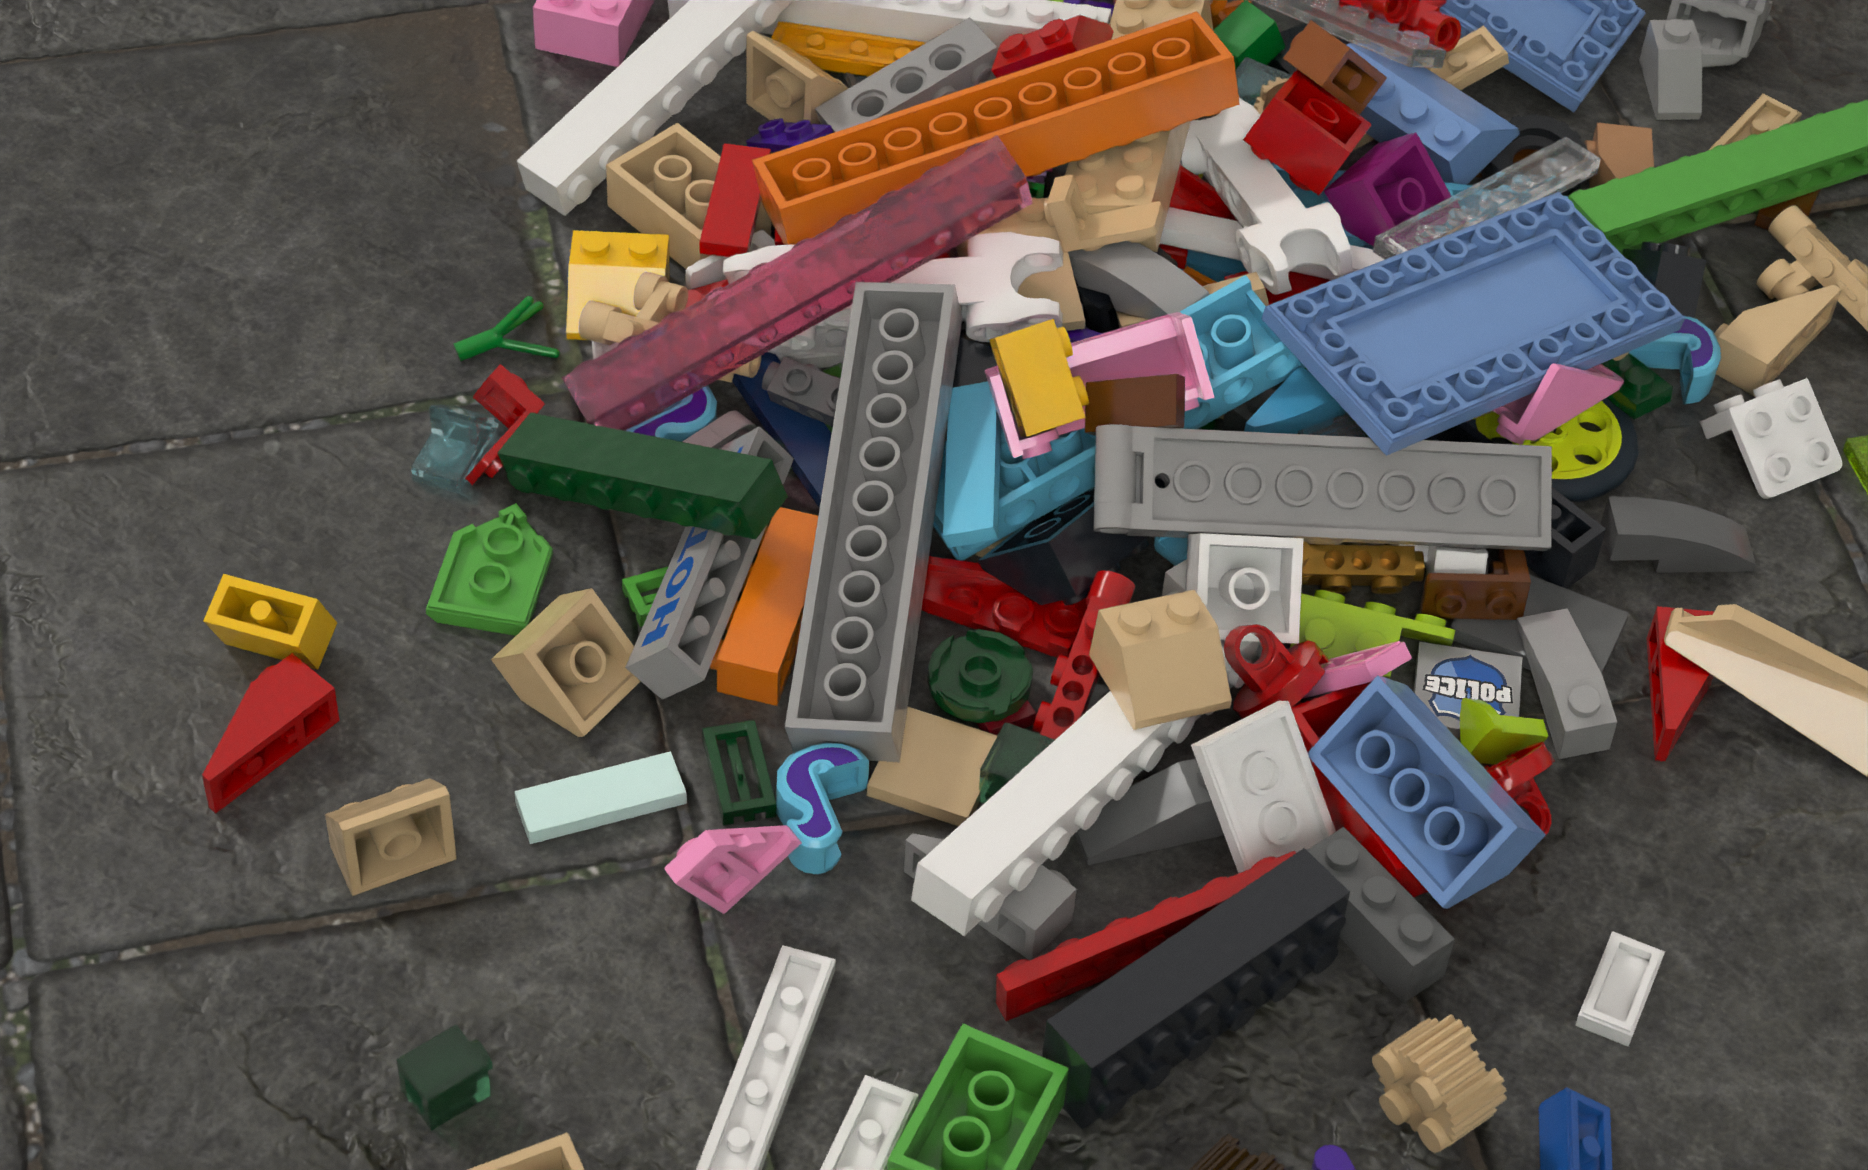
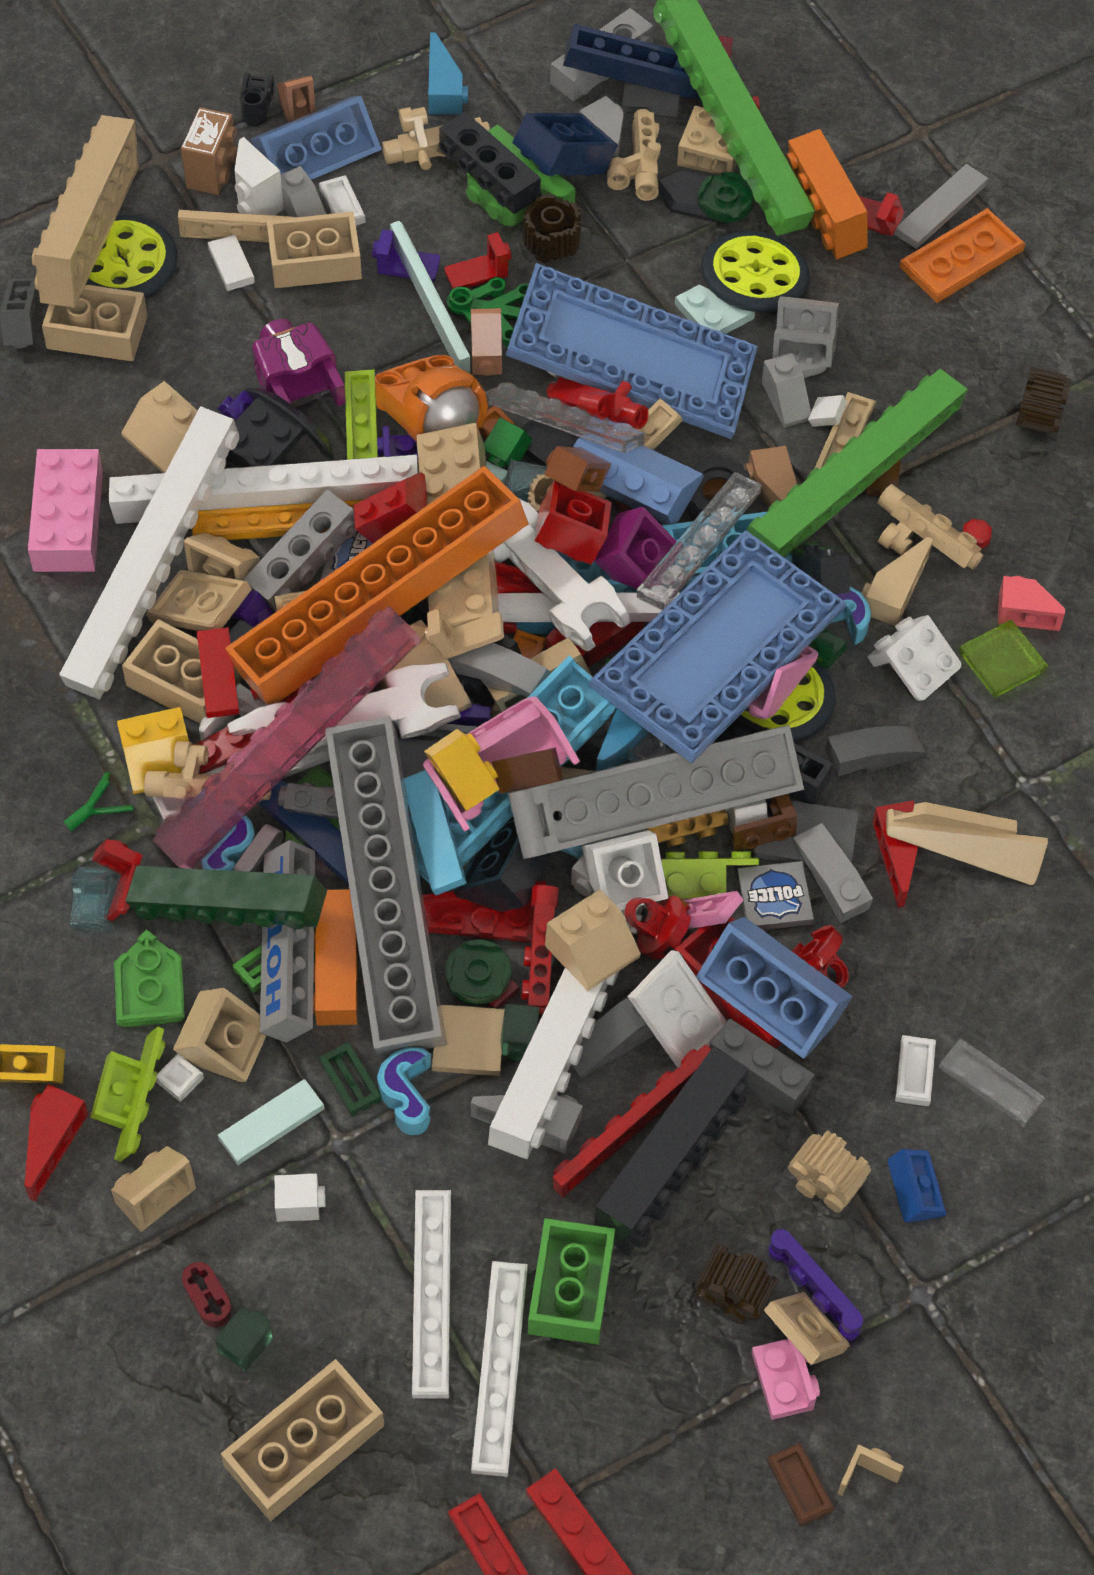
camera: 15 degrees left, 10 degrees up
(396, 696) = (124, 1092): none -> lime bracket
(403, 1006) = (213, 1290): none -> dark red beam
(488, 705) = (179, 1077): none -> white tile
(600, 905) = (298, 1197): none -> white brick
(728, 863) = (368, 1152): bright pink wing -> none
(750, 119) = (199, 601): none -> tan tile
(1494, 736) = (799, 926): lime tile -> none
(1726, 108) = (827, 410): none -> white tile
(1740, 1035) = (992, 1082): none -> clear plate

